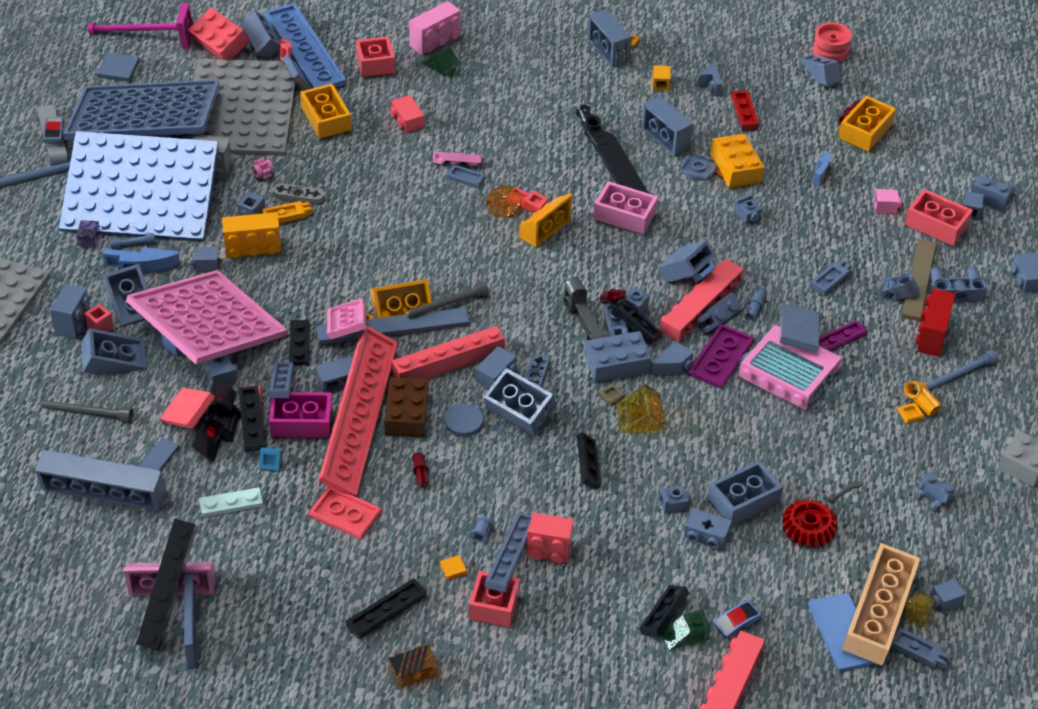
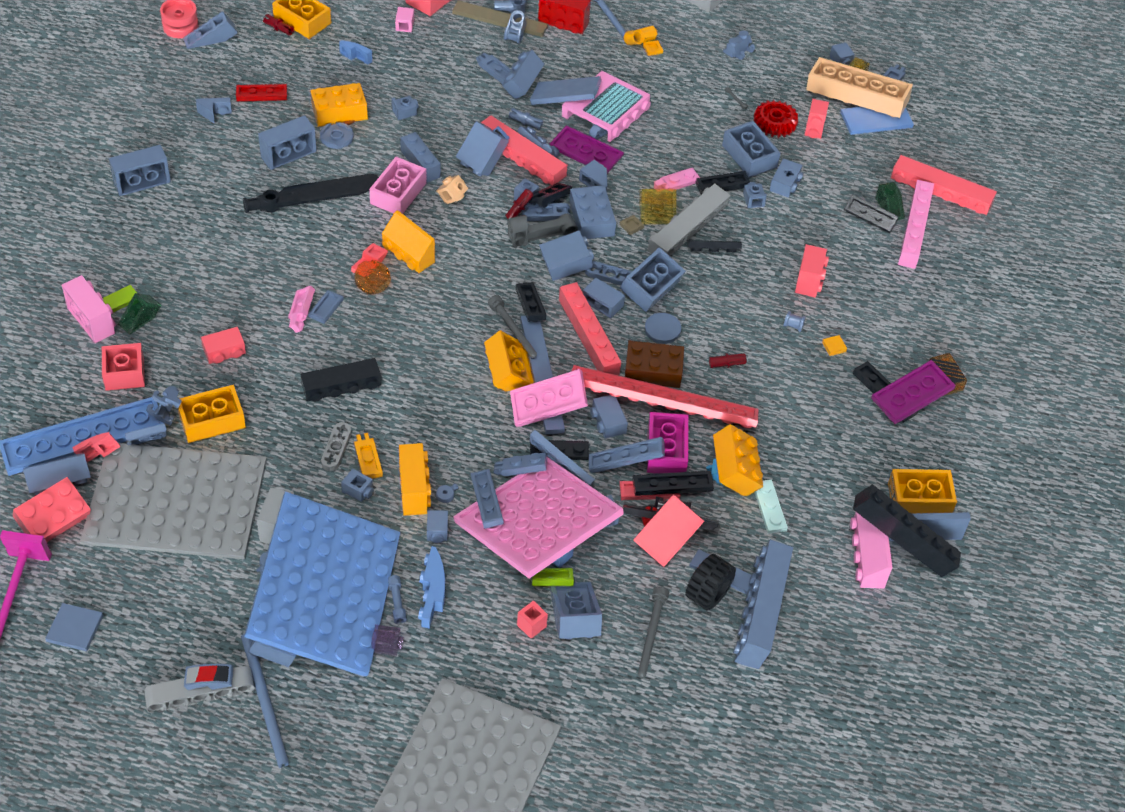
camera: 90 degrees left, 5 degrees up
(69, 311) = (521, 643): sand blue brick -> none
(118, 286) = (487, 596): sand blue slope -> none
(126, 438) = (710, 581): none -> black tyre
(144, 109) = (189, 583): sand blue plate -> none
(150, 340) = (554, 577): none -> lime tile
(233, 286) = (487, 498): none -> sand blue tile
(239, 625) = (923, 490): none -> light orange brick
(247, 266) = (446, 493): none -> sand blue piece
(262, 168) = (296, 474): bright pink gear -> none
(275, 312) = (521, 464): none -> sand blue hinge
(275, 465) = (738, 460): none -> light orange brick
(277, 335) = (560, 458): none -> sand blue tile
(327, 76) = (166, 404): none -> sand blue piece
(345, 512) = (777, 419): coral tile -> none
(372, 189) = (340, 379): none -> black brick
(378, 625) = (913, 392): none -> magenta tile
(462, 53) = (120, 298): none -> lime tile
(482, 311) = (530, 302): none -> black plate
(493, 605) = (875, 314): coral brick -> none
(509, 554) = (828, 297): sand blue tile -> none
(548, 335) = (567, 255): none -> sand blue brick
(619, 438) = (689, 220): none -> light grey brick
(630, 248) = (452, 189): none -> light nougat brick
(652, 653) = (916, 224): none -> bright pink brick
(661, 78) = (203, 143): light orange brick -> none
(673, 223) = (419, 154): none -> sand blue brick
(688, 433) = (677, 180): none -> bright pink hinge
(690, 471) = (727, 181): none -> black plate
(737, 618) = (874, 173): slope -> none
(808, 554) = (816, 118): none -> coral brick
(820, 293) = (522, 74): none -> sand blue brick
(842, 336) = (561, 69): magenta tile -> none

